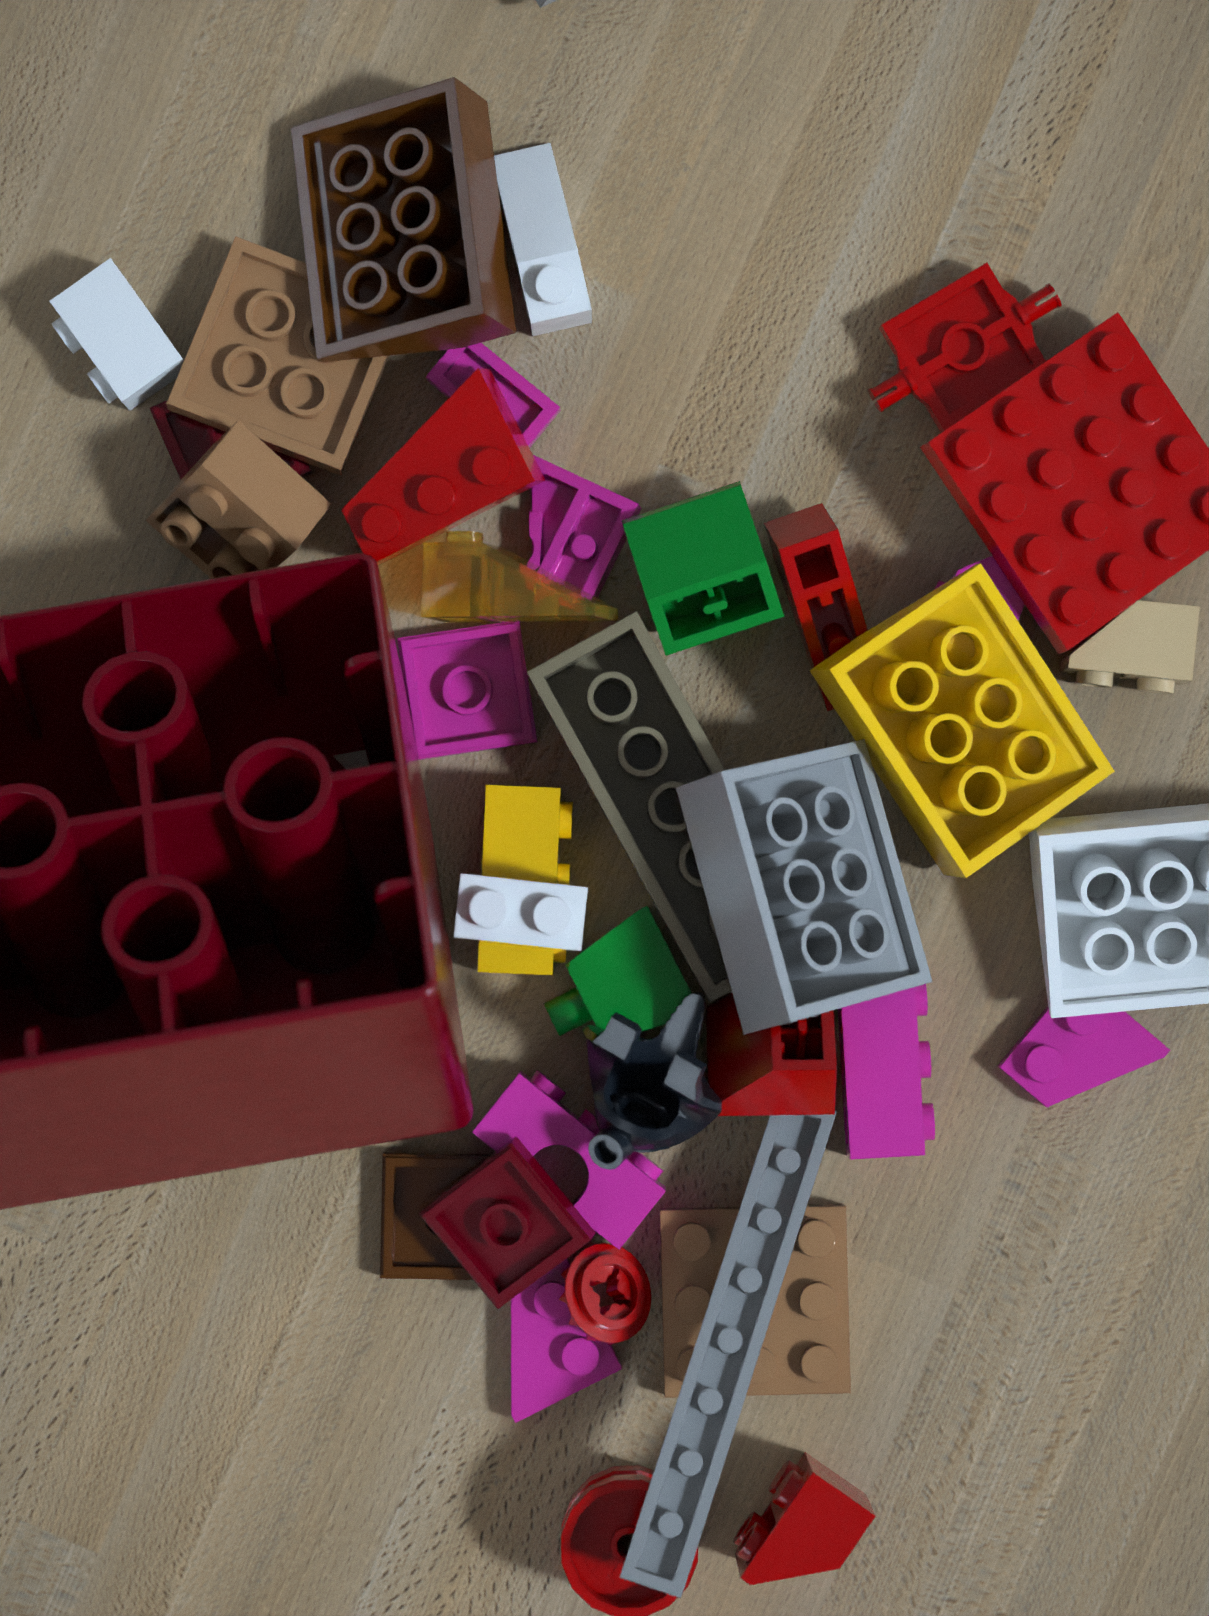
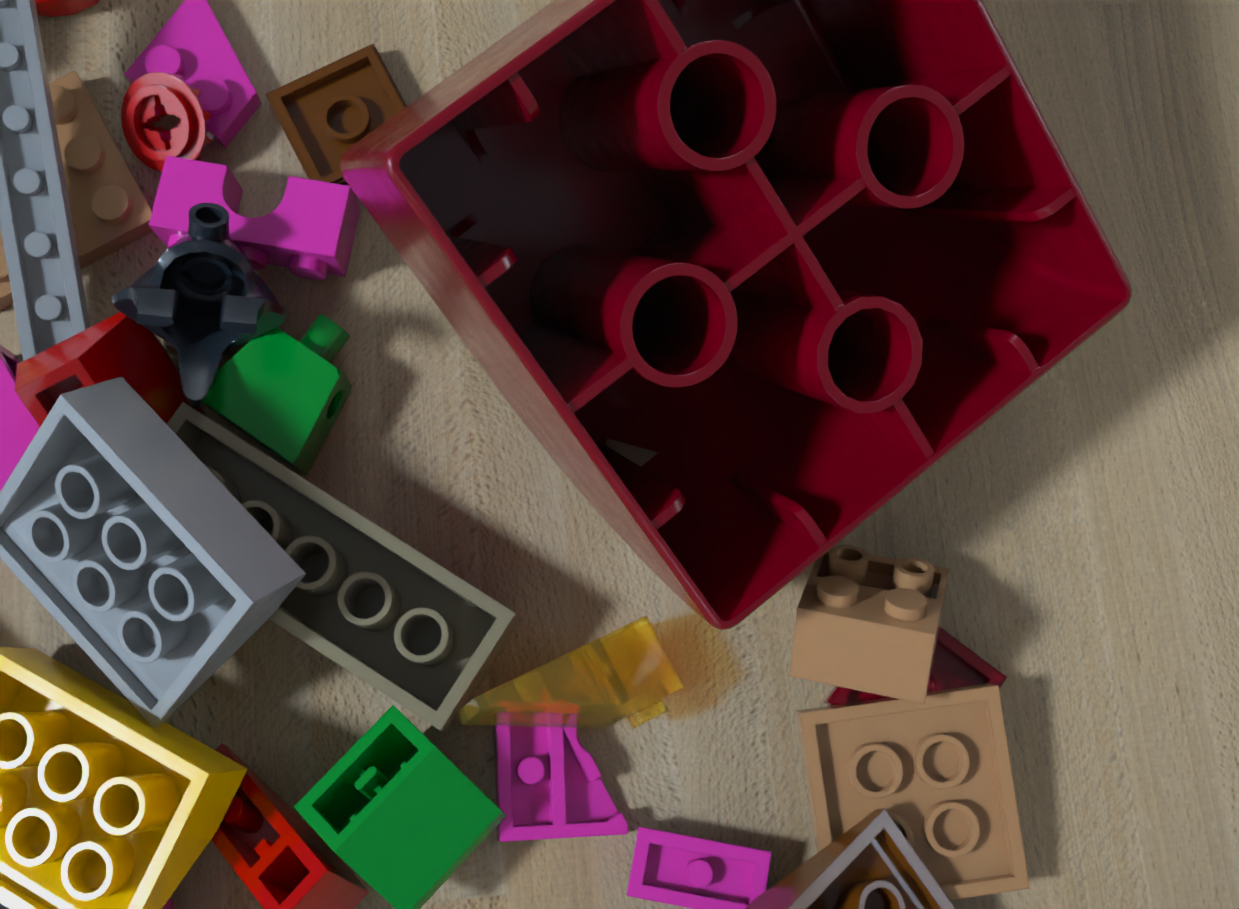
camera: 150 degrees right, 10 degrees down
(117, 334) = (1081, 729): white brick -> none
(445, 474) = (697, 768): red wedge -> none
(467, 690) = (569, 577): dark pink tile -> none
(507, 1222) = (279, 130): dark red tile -> none
(520, 912) = (398, 386): white brick -> none
(523, 844) = (423, 432): yellow brick -> none

